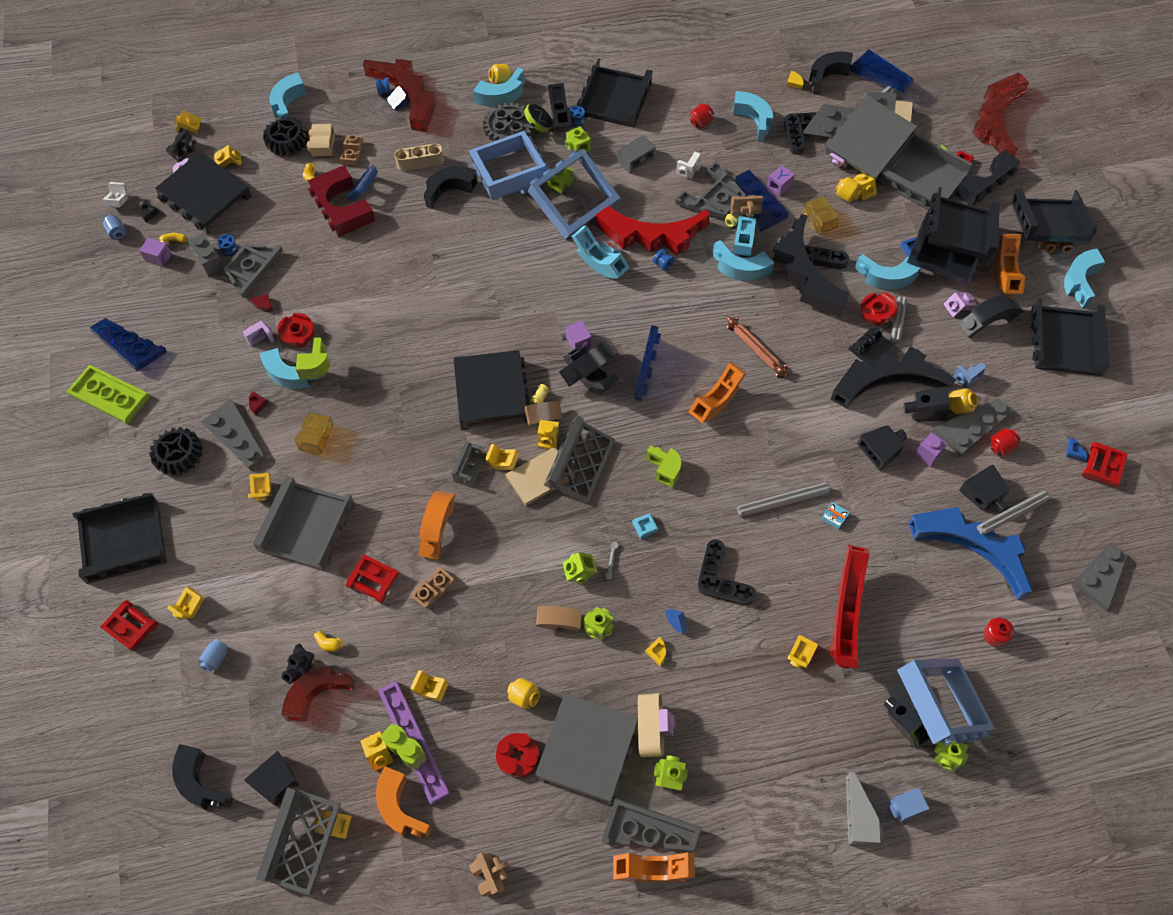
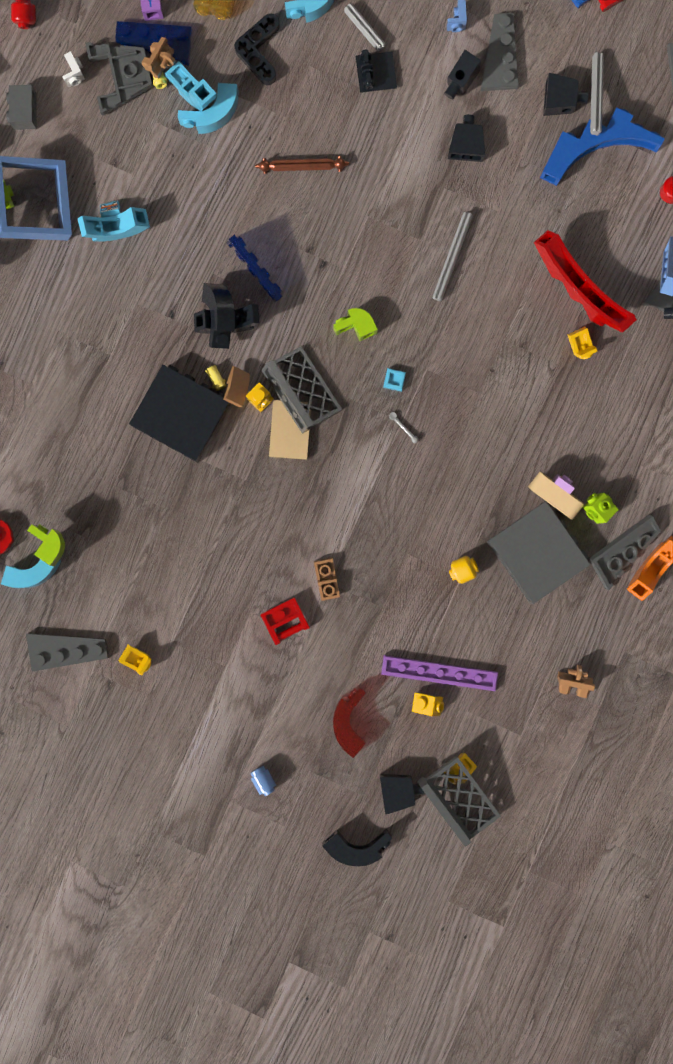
camera: 50 degrees left, 25 degrees up
(120, 537) = (100, 797): black panel -> none
(125, 631) = (190, 837): red plate -> none
(175, 446) = (52, 714): black gear -> none
(187, 604) = (203, 777): yellow bracket -> none
(256, 403) = (45, 614): dark red tile -> none
(298, 664) = (321, 722): black hips -> none
(304, 524) = (196, 643): dark grey panel -> none
(314, 433) = (115, 585): clear yellow brick -> none
(328, 644) = (316, 688): yellow arm -> none
(388, 802) = (481, 722): orange arch -> none
(405, 747) = (449, 682): lime brick -> none
(429, 686) = (408, 634): yellow bracket -> none
(433, 523) = (275, 540): orange arch -> none
(469, 464) = (239, 479): dark grey hinge -> none
(501, 459) = (253, 449): yellow bracket -> none
(511, 766) = (495, 611): red plate -> none
(555, 616) = (423, 501): medium nougat slope -> none
(578, 335) = (183, 304): medium lavender brick -> none
(579, 567) = (396, 457): lime brick -> none
(600, 629) = (444, 478): lime brick -> none
(651, 236) = (103, 181): red arch -> none
(657, 651) = (501, 447): yellow tile -> none
(663, 259) = (158, 173): blue wheel -> none
(677, 620) = (489, 415): blue tile -> none
(712, 577) = (475, 361): black beam -> none
(714, 401) = (327, 233): orange arch -> none
(814, 287) = (289, 71): black arch -> none
(835, 515) = (494, 228): tile -> none
(882, 316) = (336, 28): red plate -> none
(889, 370) = (404, 77): black arch -> none
(930, 449) = (498, 107): medium lavender brick -> none
(963, 401) = (479, 44): yellow head -> none
(1005, 442) = (535, 45): red head -> none

